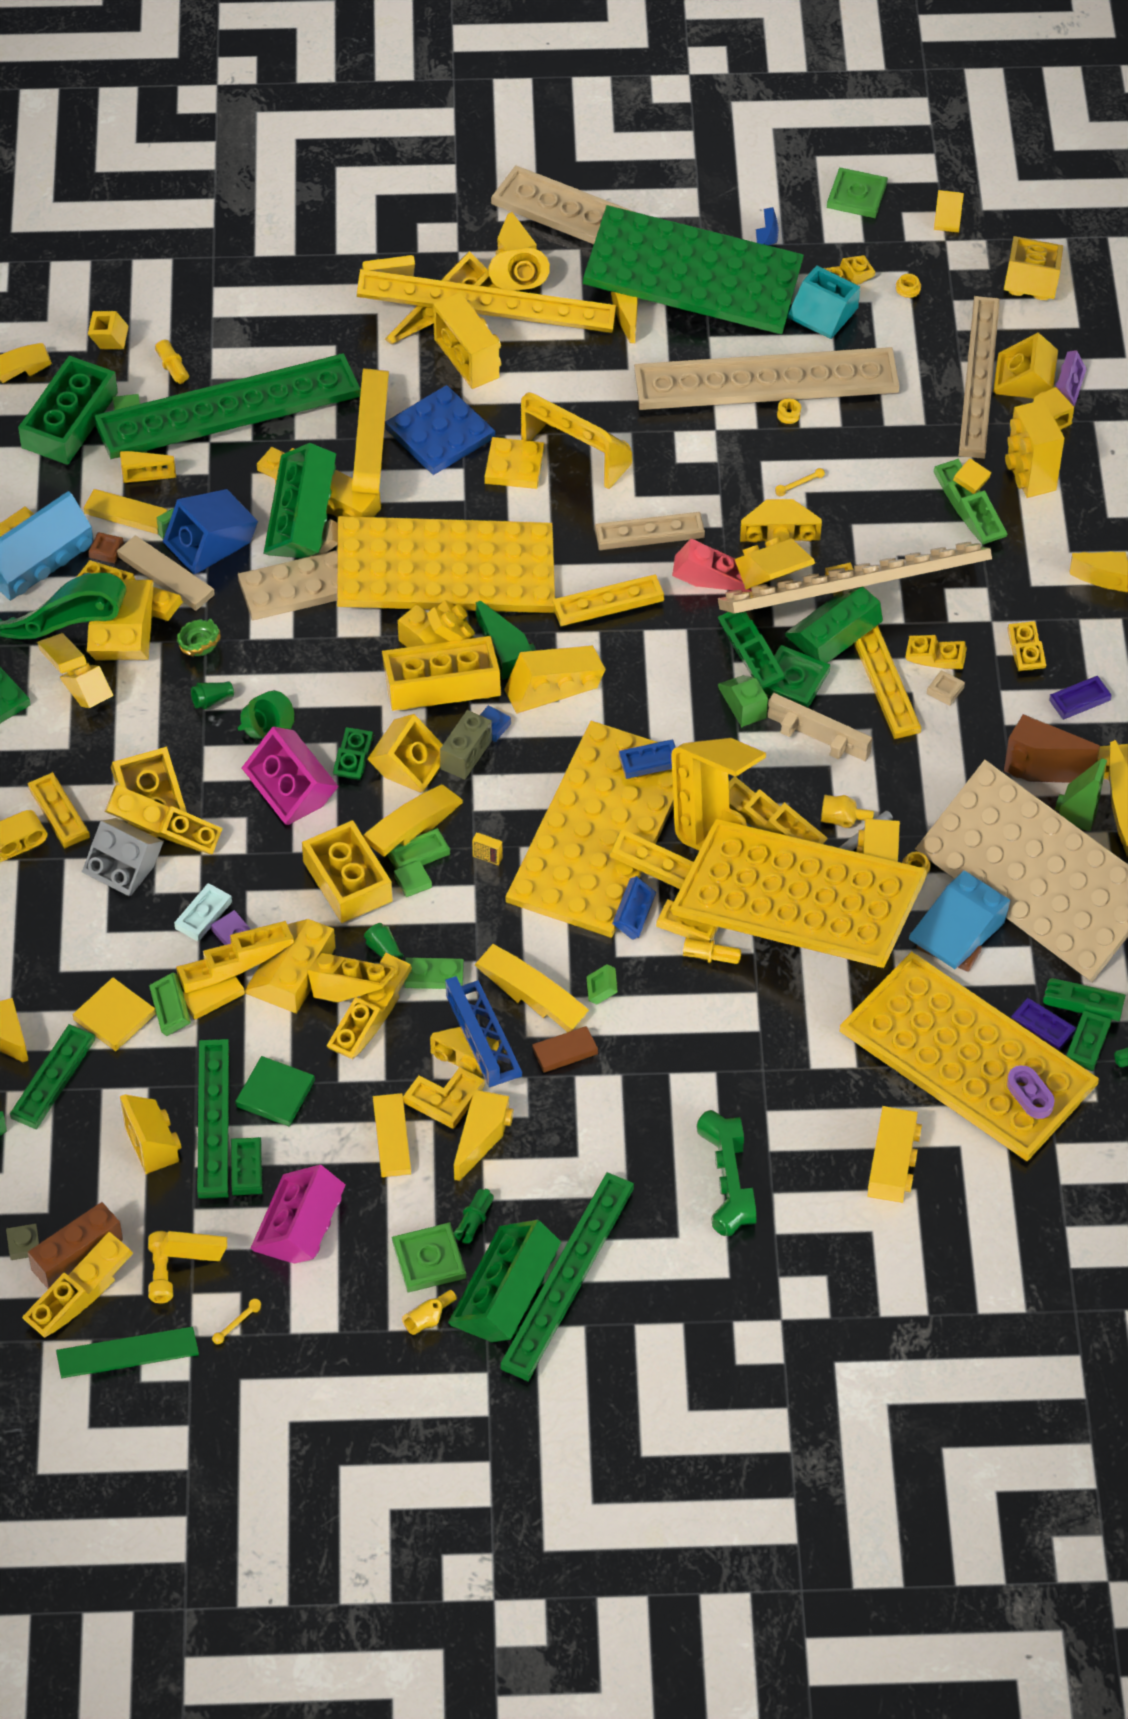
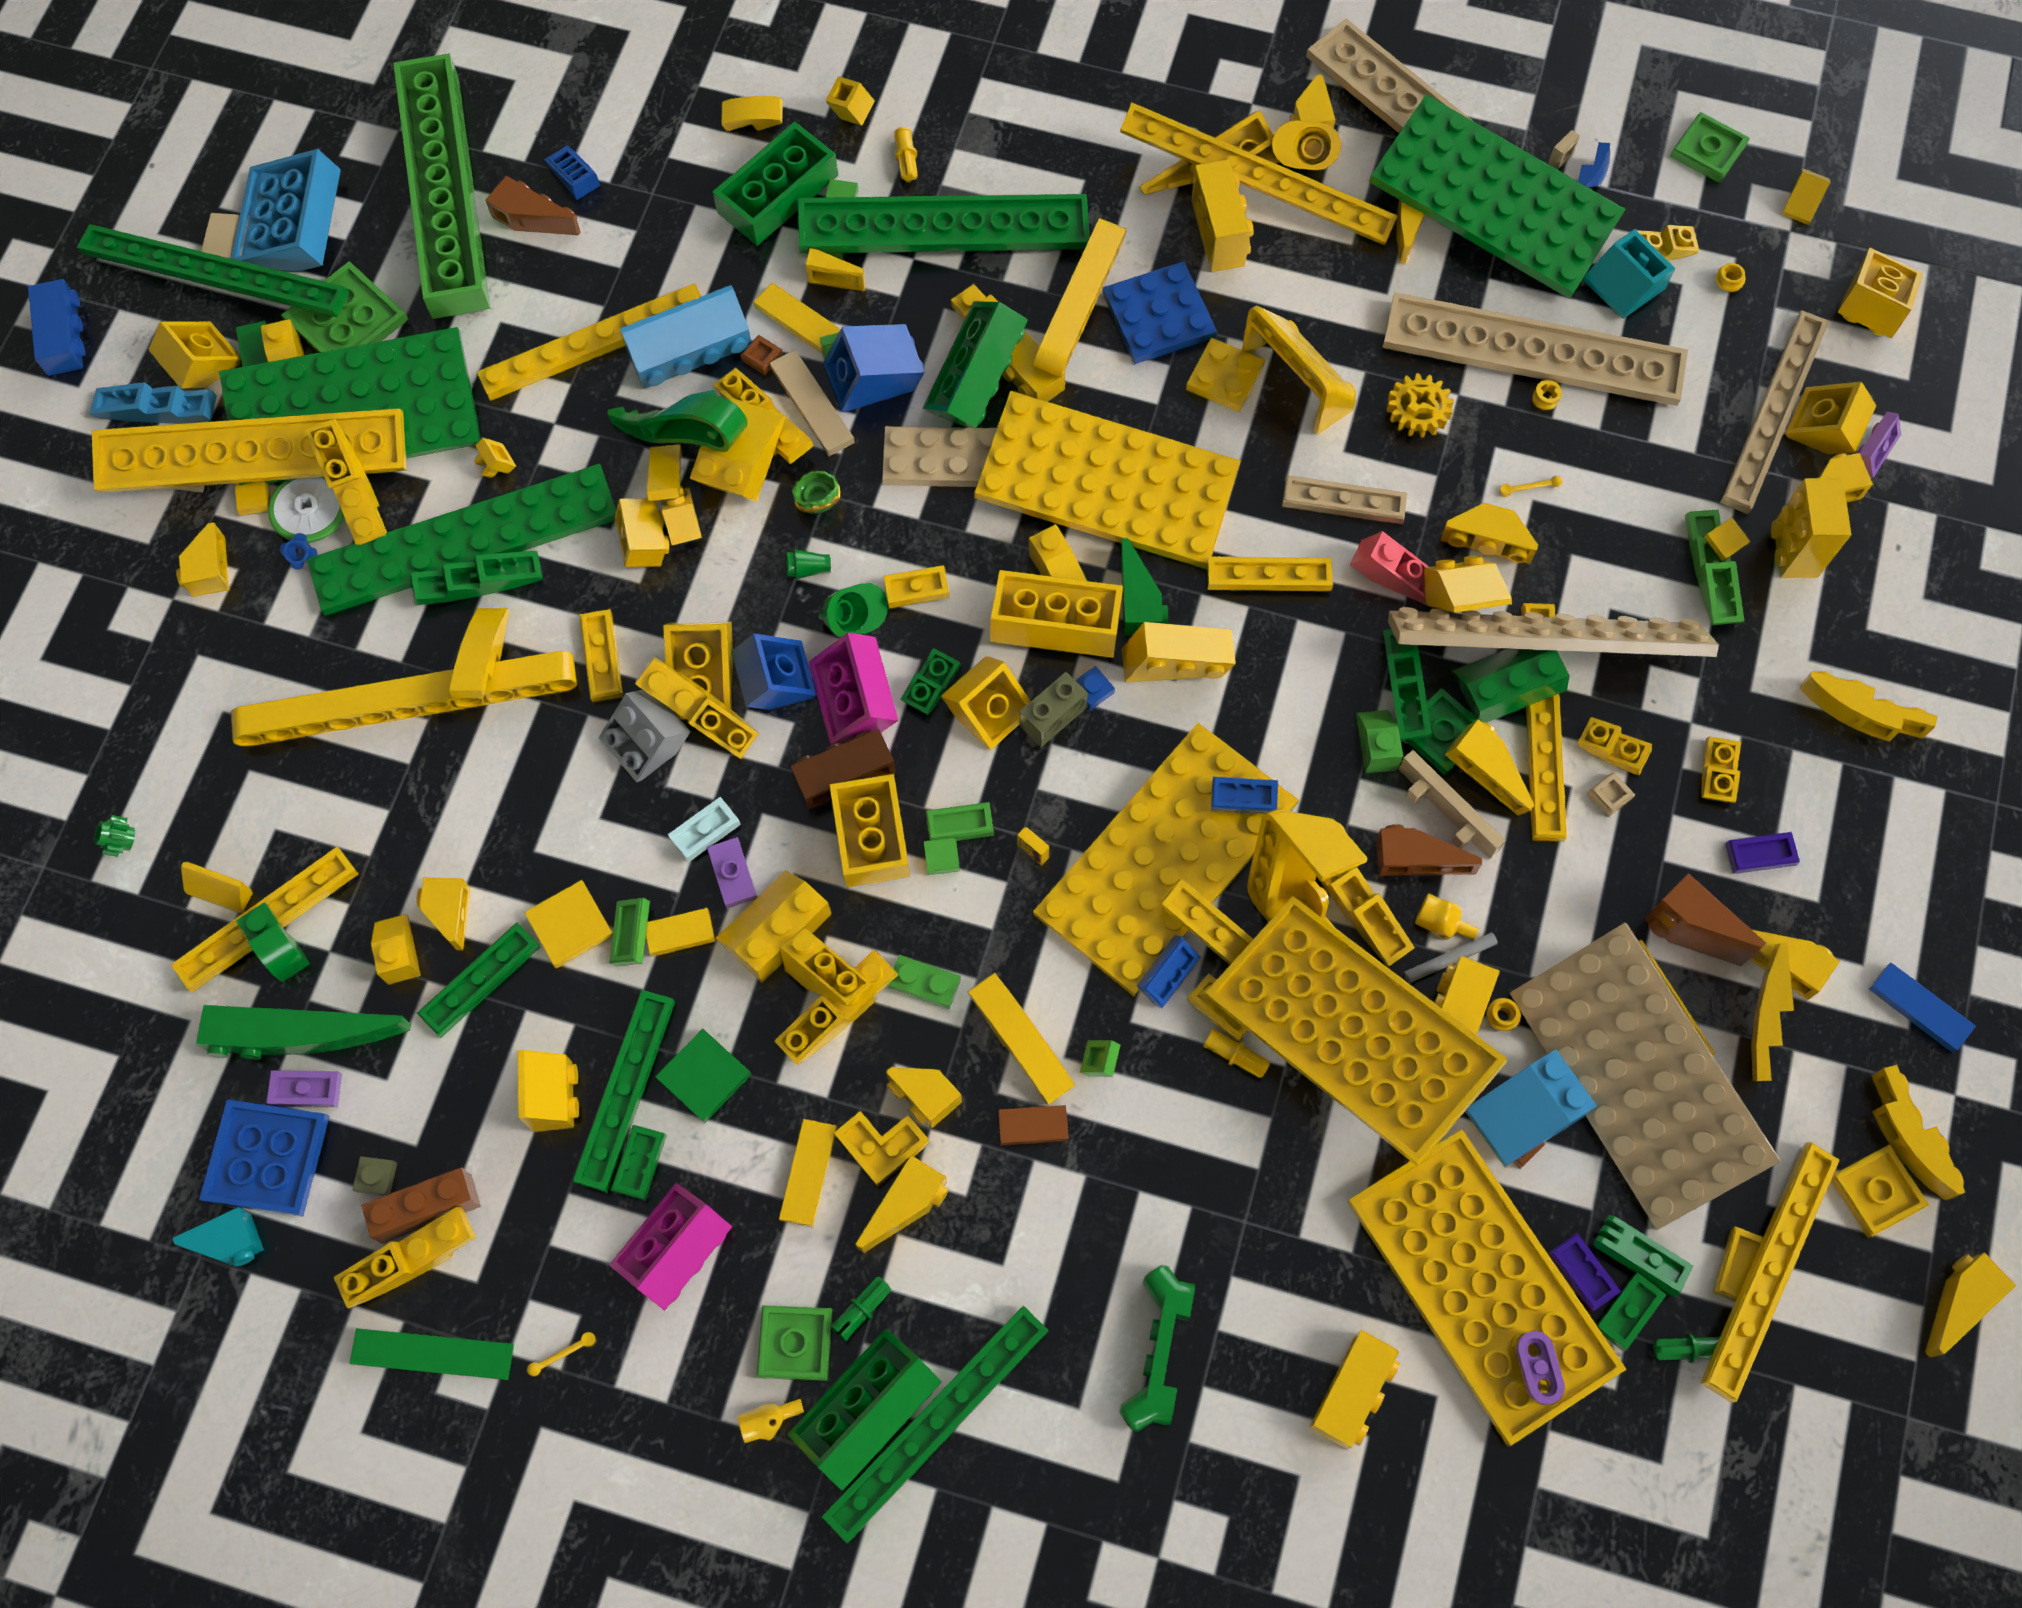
camera: 20 degrees right, 15 degrees up
(58, 705) = (641, 532): none -> yellow brick
(160, 1289) = (494, 1287): yellow piece -> none
(193, 1246) = (542, 1251): yellow tile -> none
(214, 780) = (773, 672): none -> blue slope
(229, 960) = (714, 901): yellow slope -> none
(284, 846) = (858, 759): none -> reddish brown brick
(313, 686) = (916, 586): none -> yellow plate
(329, 536) = (994, 410): tan tile -> none
(381, 940) = (881, 929): green cone -> none
(398, 265) = (1174, 108): yellow tile -> none
(412, 818) = (964, 784): yellow slope -> none
(450, 622) = (1088, 559): yellow plate -> none
(477, 1035) = (930, 1087): blue fence -> none
(687, 443) = (1420, 405): none -> yellow gear
(737, 221) = (1564, 150): none -> tan tile
(807, 769) = (1417, 853): none -> dark orange slope
(839, 686) = (1488, 762): none -> yellow slope
(1083, 797) = (1724, 994): bright green slope -> none

